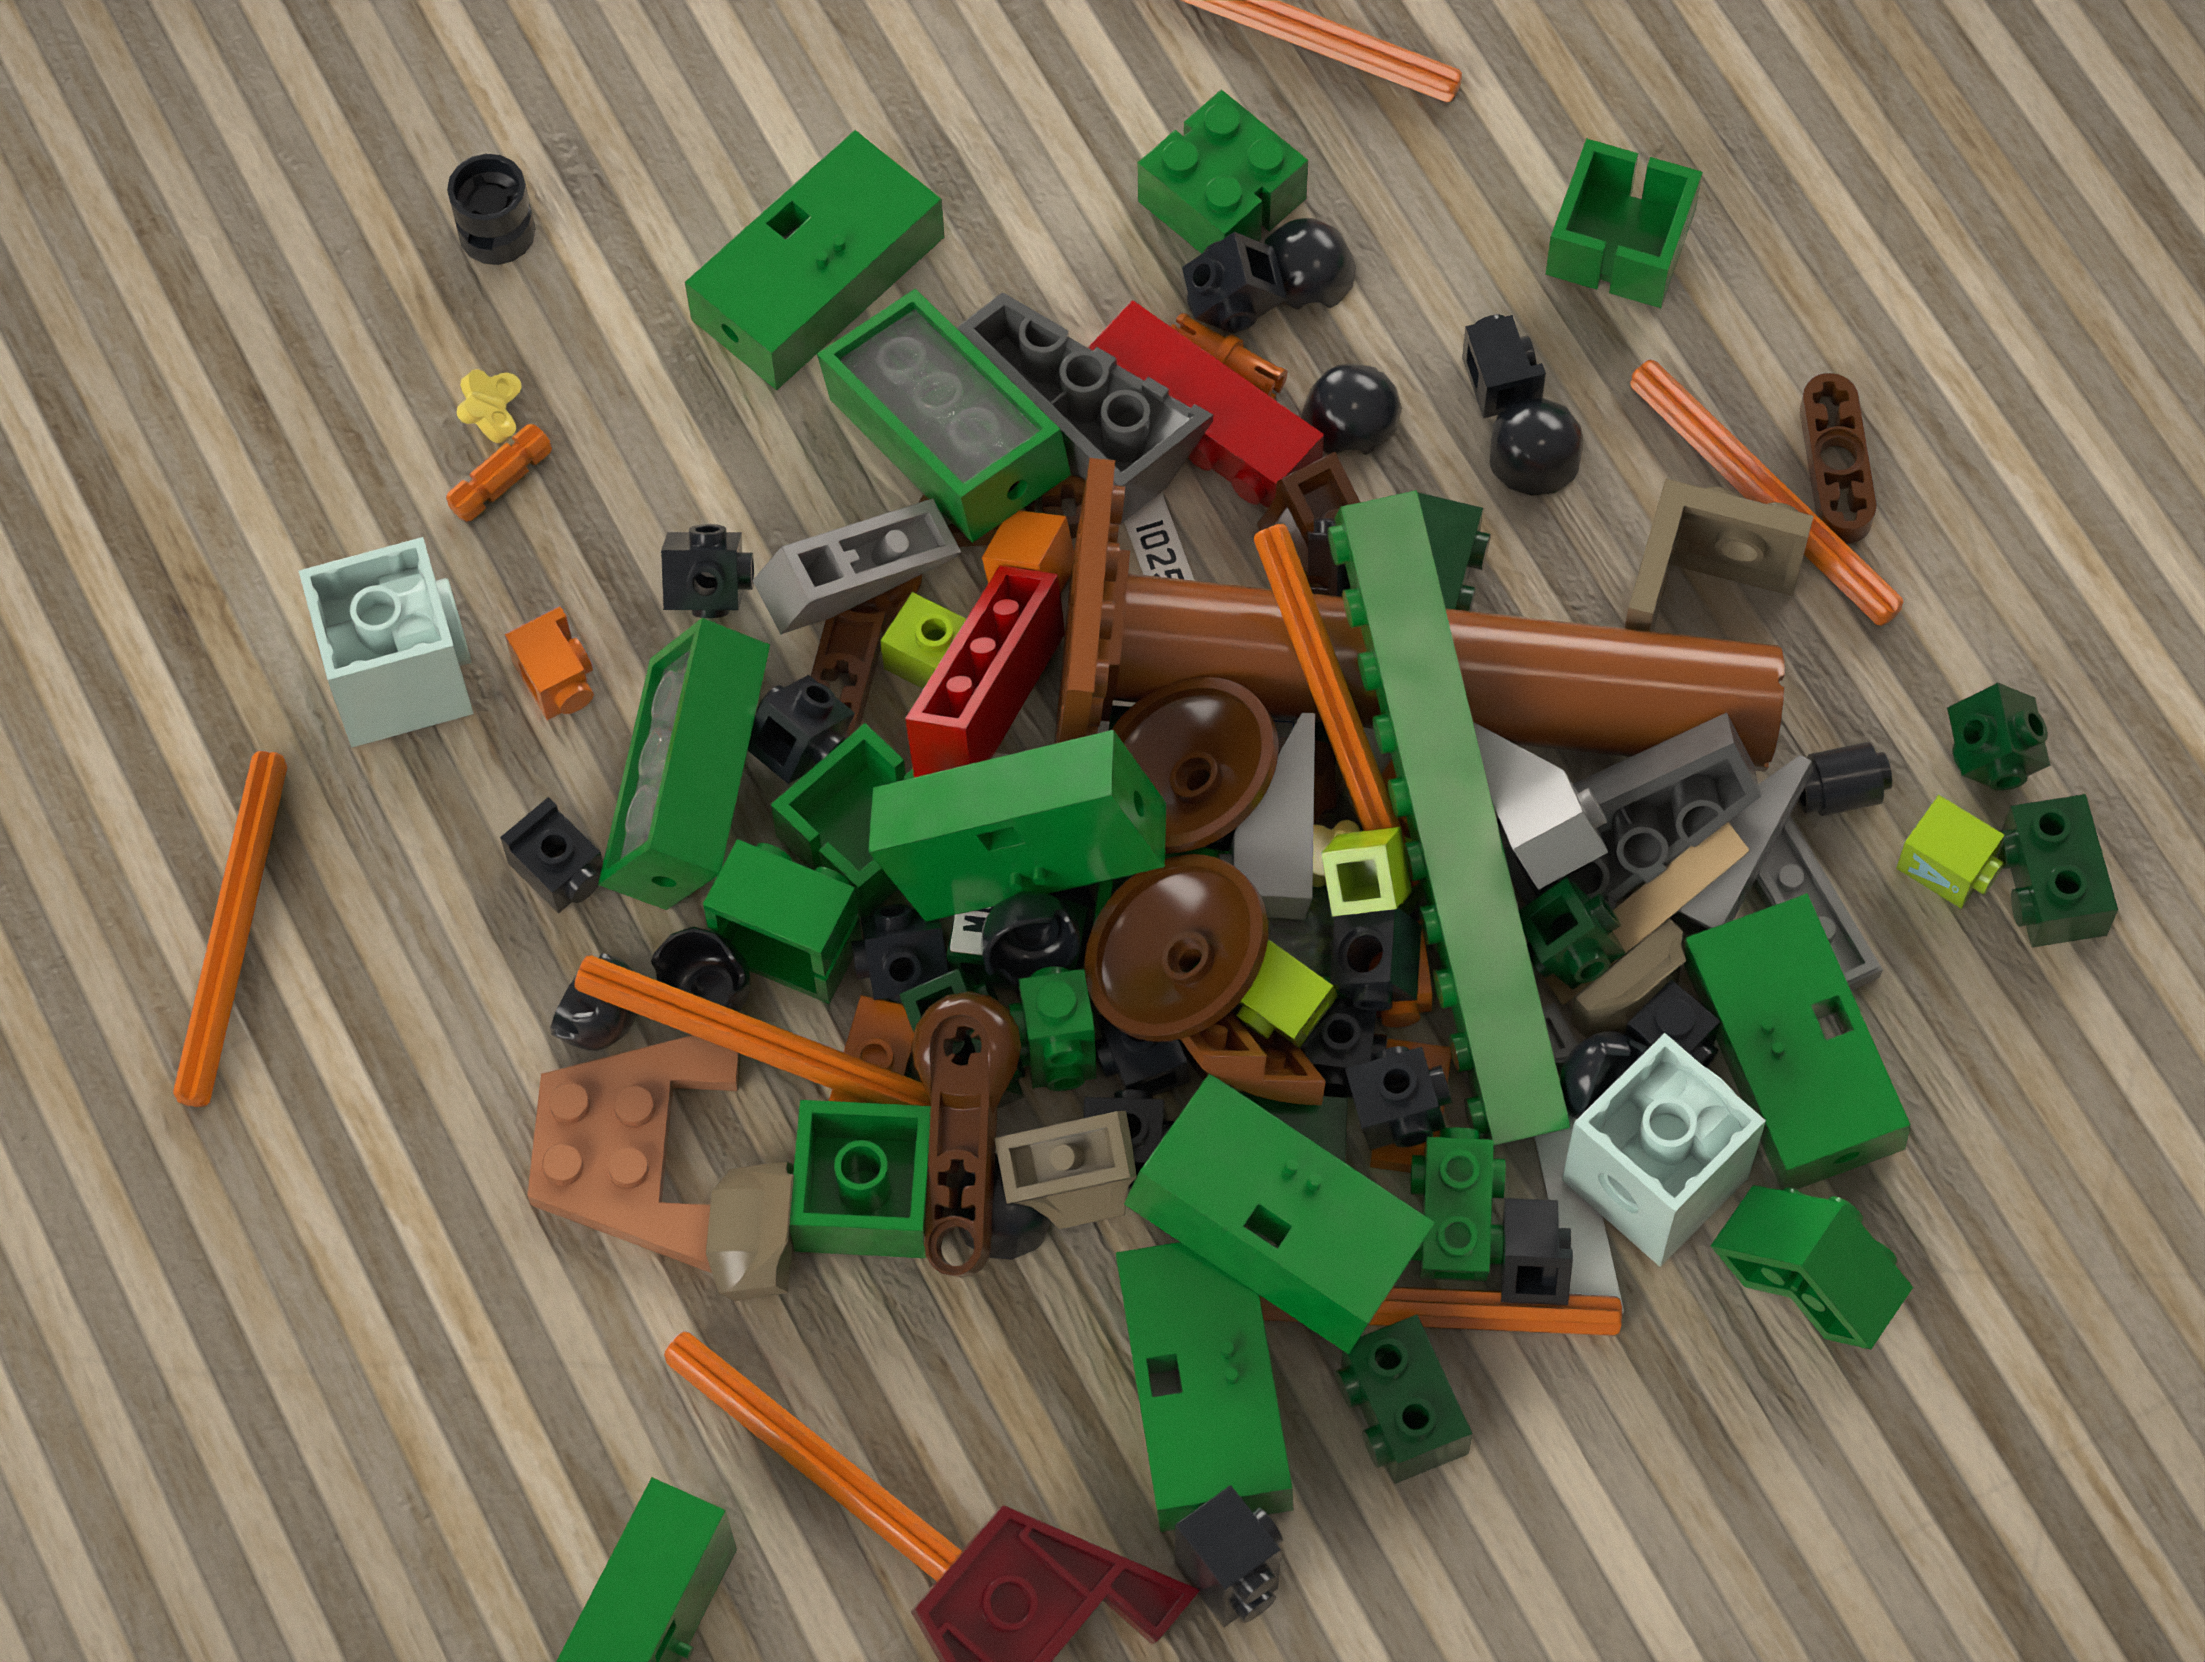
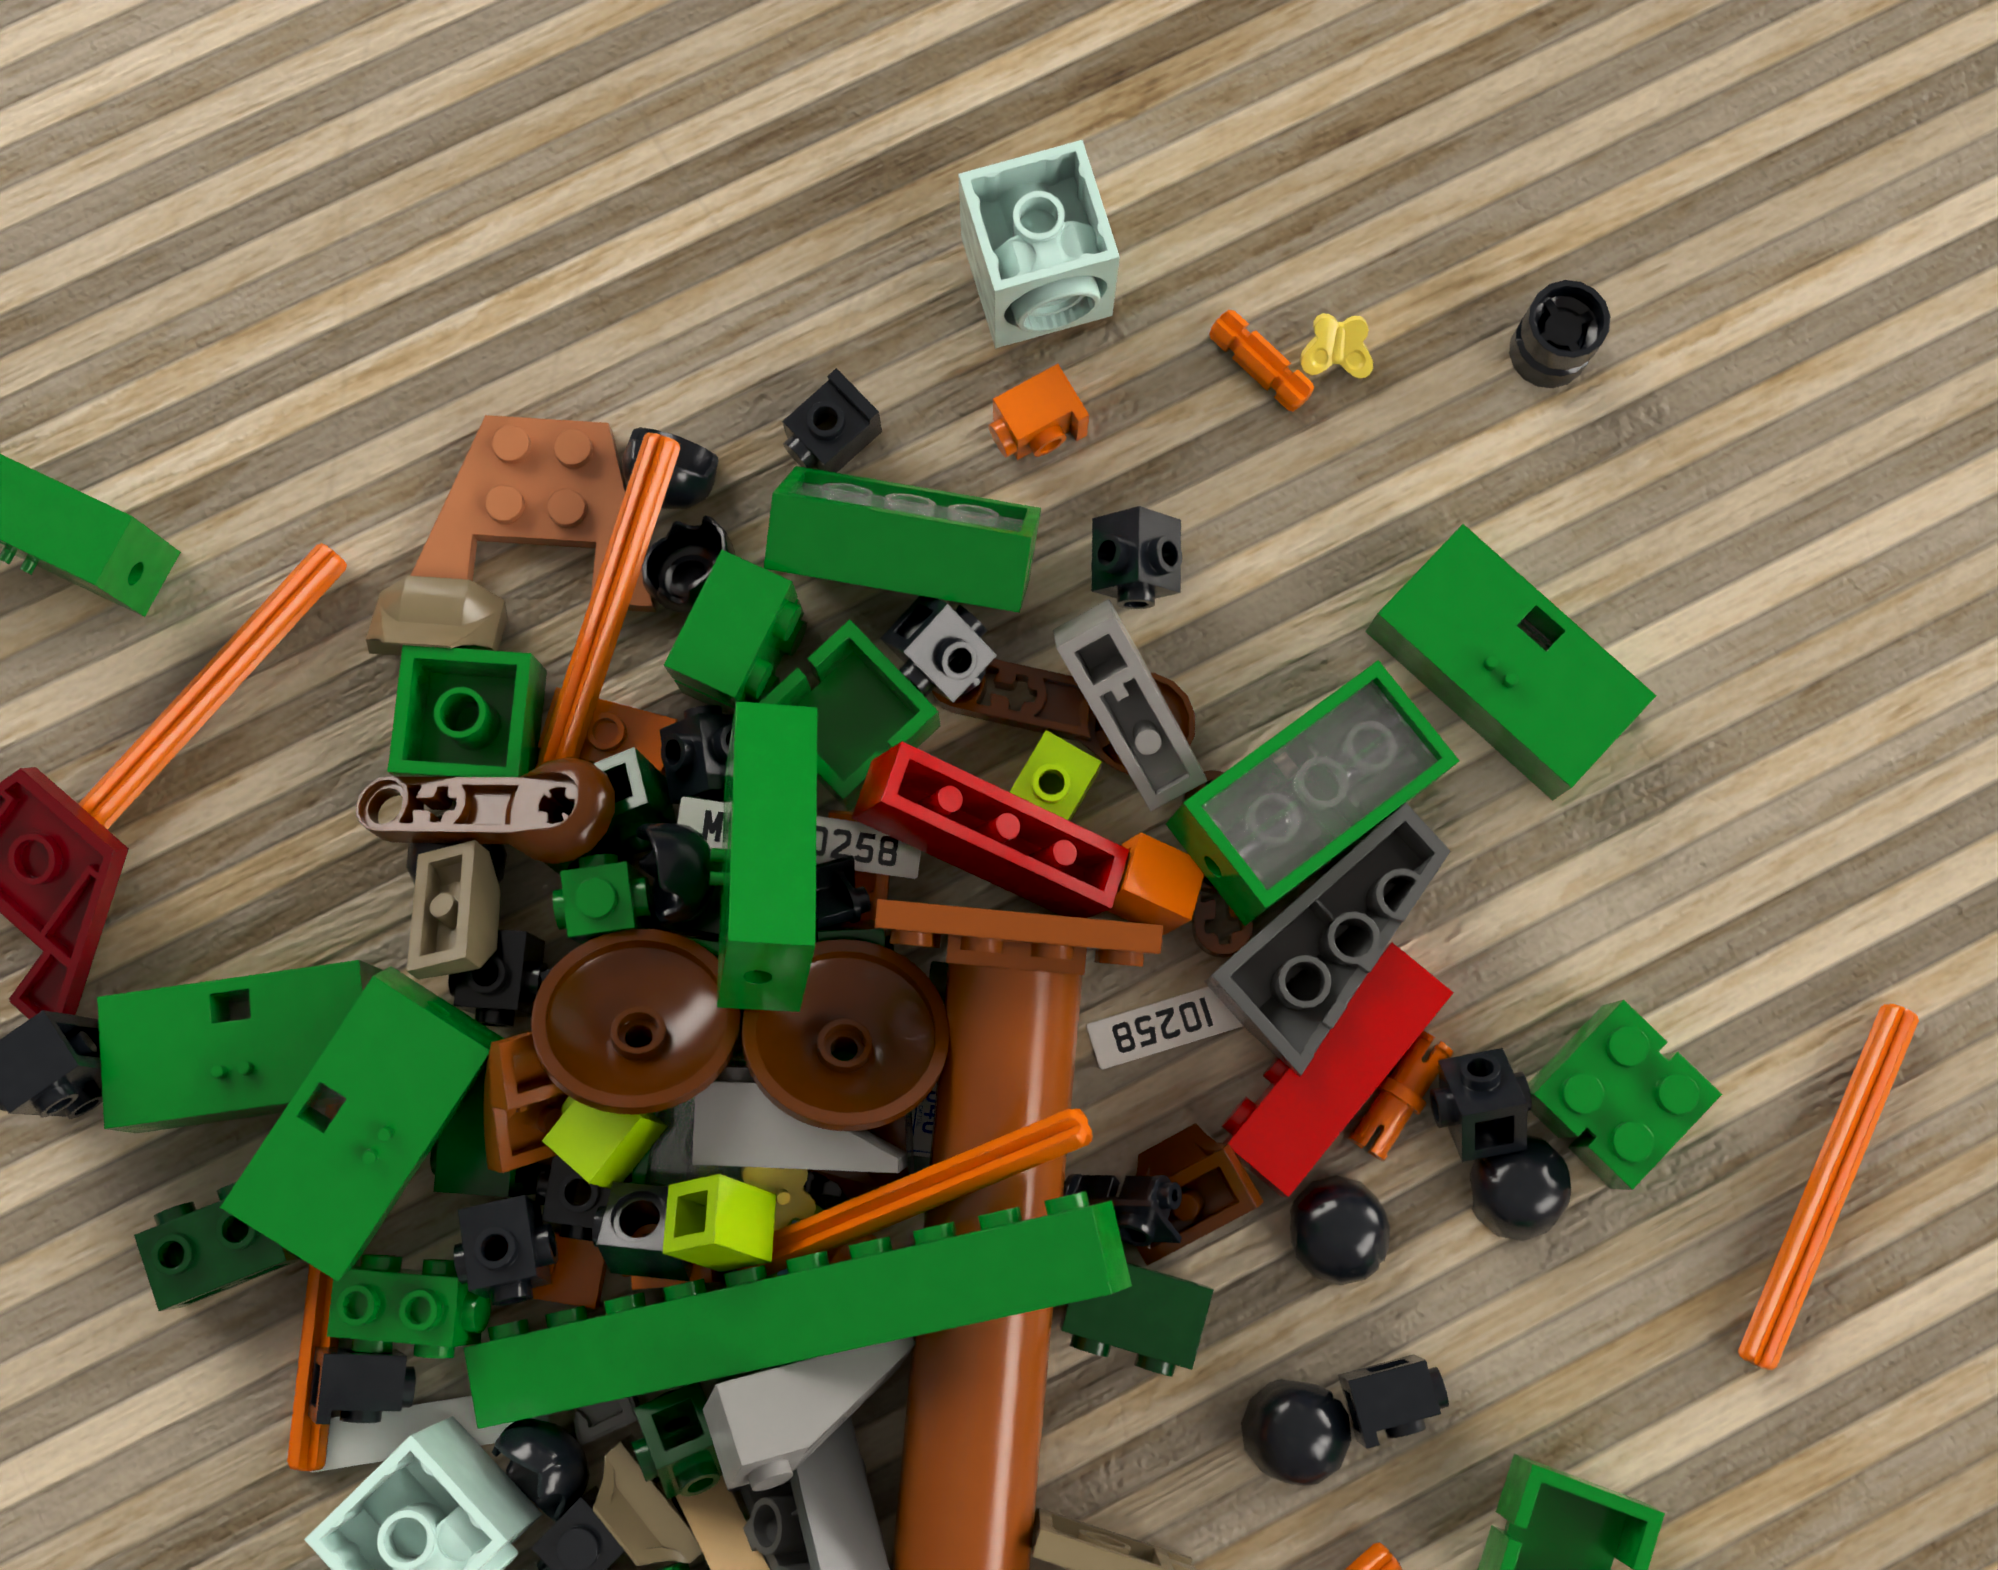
camera: 90 degrees right, 15 degrees up
(230, 930) = (775, 140): orange axle -> none

